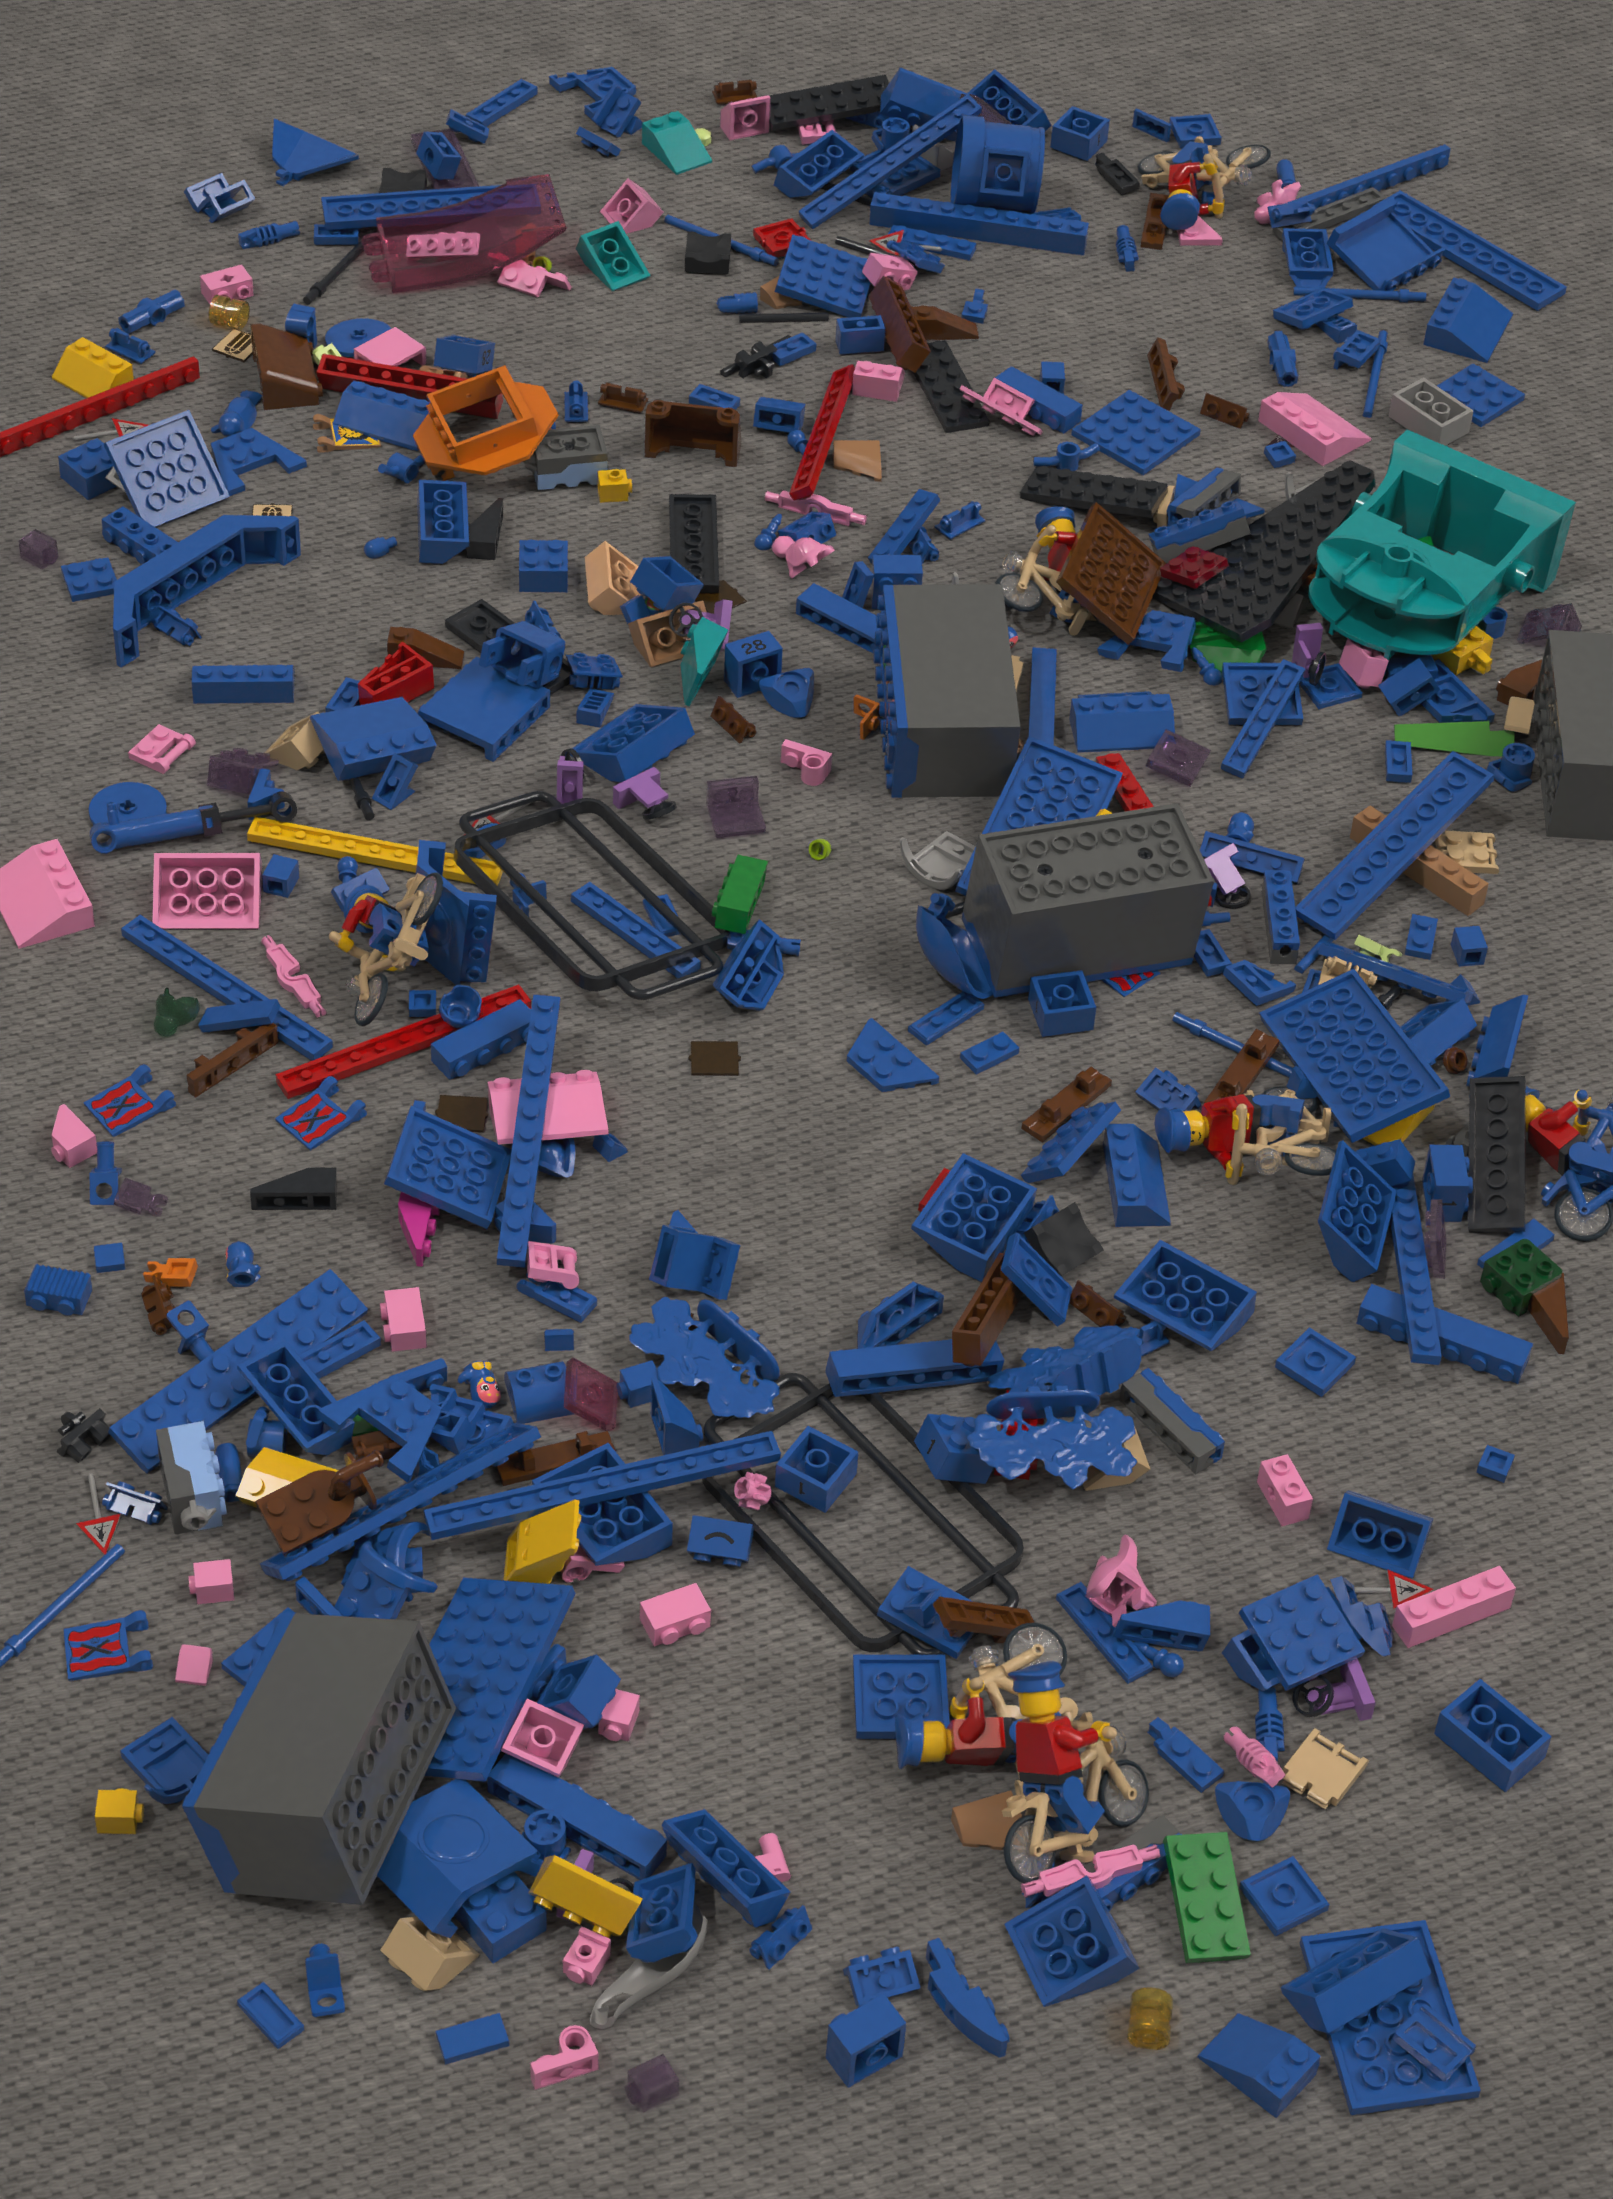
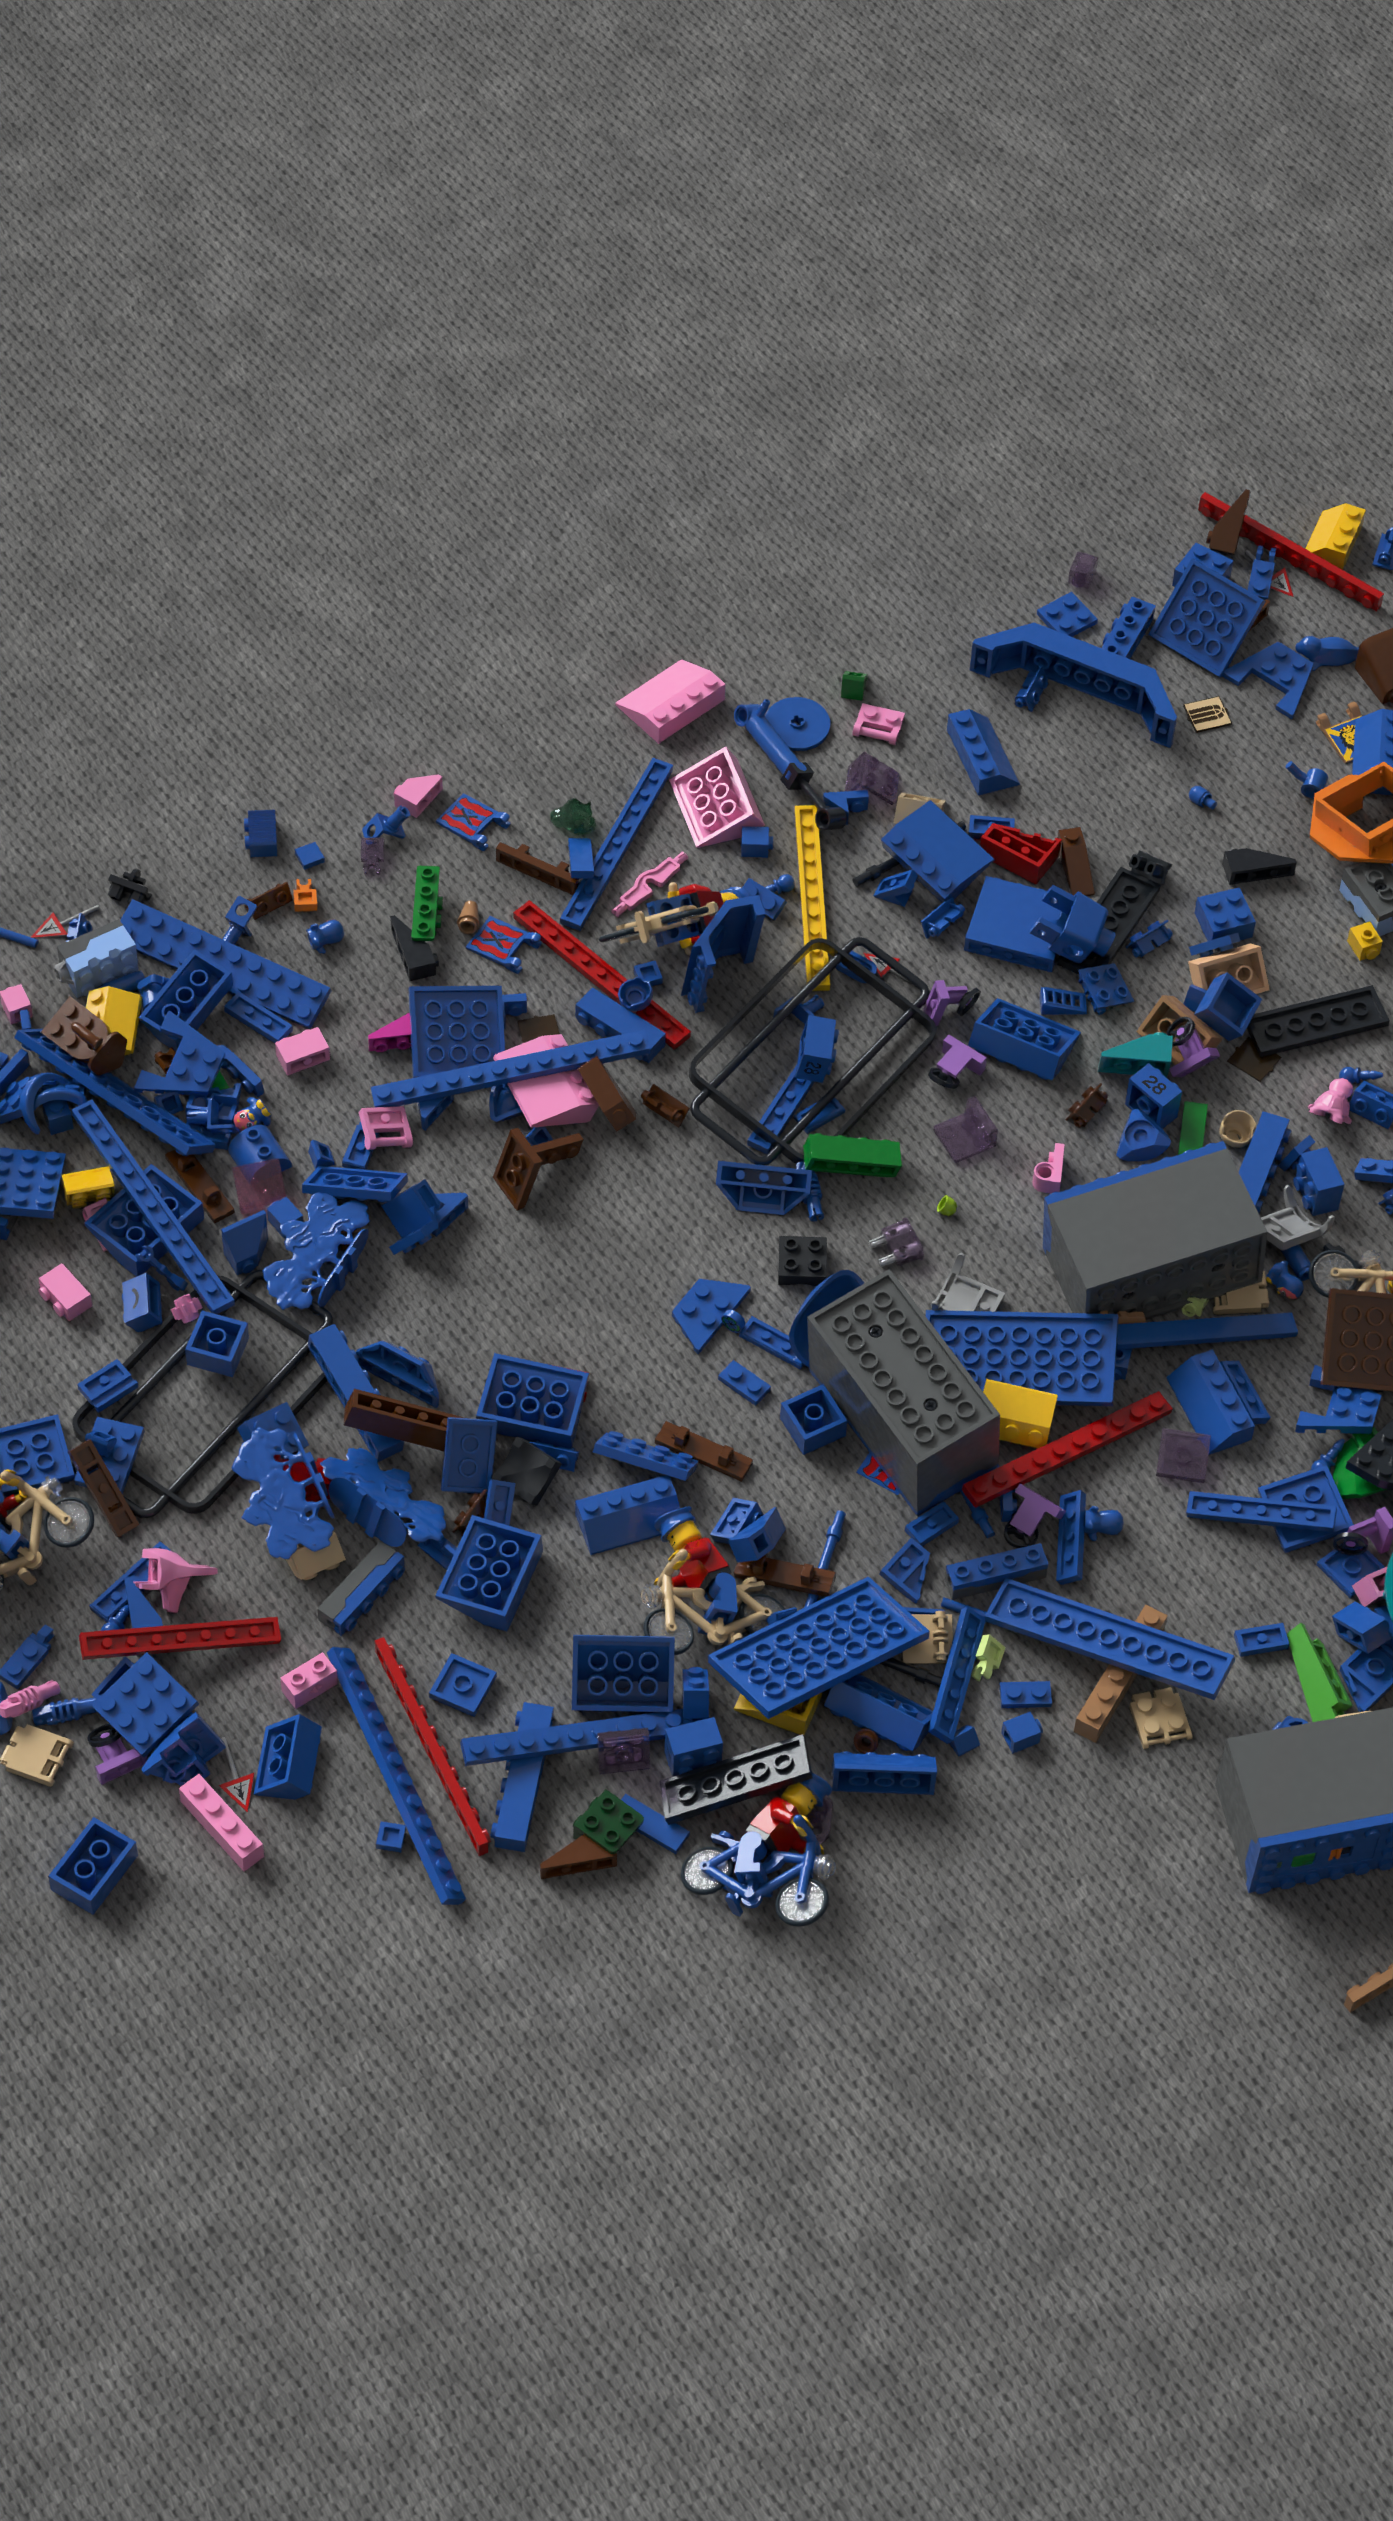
camera: 75 degrees right, 10 degrees up
(49, 428) = (1228, 529): none -> reddish brown slope
(100, 750) = (853, 685): none -> green slope
(102, 428) = (1262, 574): none -> blue hinge
(247, 1157) = (426, 904): none -> green bracket
(251, 1578) = (25, 1019): none -> blue tile
(273, 1133) = (469, 920): none -> medium nougat cone
(442, 520) = (1246, 824): blue slope -> none
(457, 768) = (939, 919): none -> blue hinge
(459, 597) = (1150, 867): none -> black hips
(477, 1416) = (211, 1118): none -> blue bracket
(582, 569) = (1223, 943): none -> blue plate
(605, 1057) = (607, 1094): none -> reddish brown slope
(609, 1029) = (665, 1105): none -> reddish brown hinge
(611, 871) = (817, 1049): none -> blue brick
(625, 1303) = (355, 1183): none -> blue plate
(664, 1149) = (521, 1163): none -> reddish brown piece
(692, 1506) = (175, 1281): none -> blue piece
(714, 1058) = (665, 1188): dark brown piece -> none
(797, 659) = (1192, 1126): none -> green tile
(804, 621) = (1238, 1123): none -> tan hair
(835, 1591) = (107, 1385): none -> blue plate
(852, 969) = (802, 1260): none -> black brick
(856, 891) = (901, 1243): none -> clear purple piece
(915, 1038) = (733, 1321): none -> blue tile
(1098, 1275) = (499, 1501): none -> blue plate
(1204, 1070) = (758, 1537): none -> blue slope
(1213, 1588) = (179, 1638): none -> red plate
(1388, 1403) = (436, 1753): none -> red plate
(1428, 1440) = (396, 1777): none -> blue plate

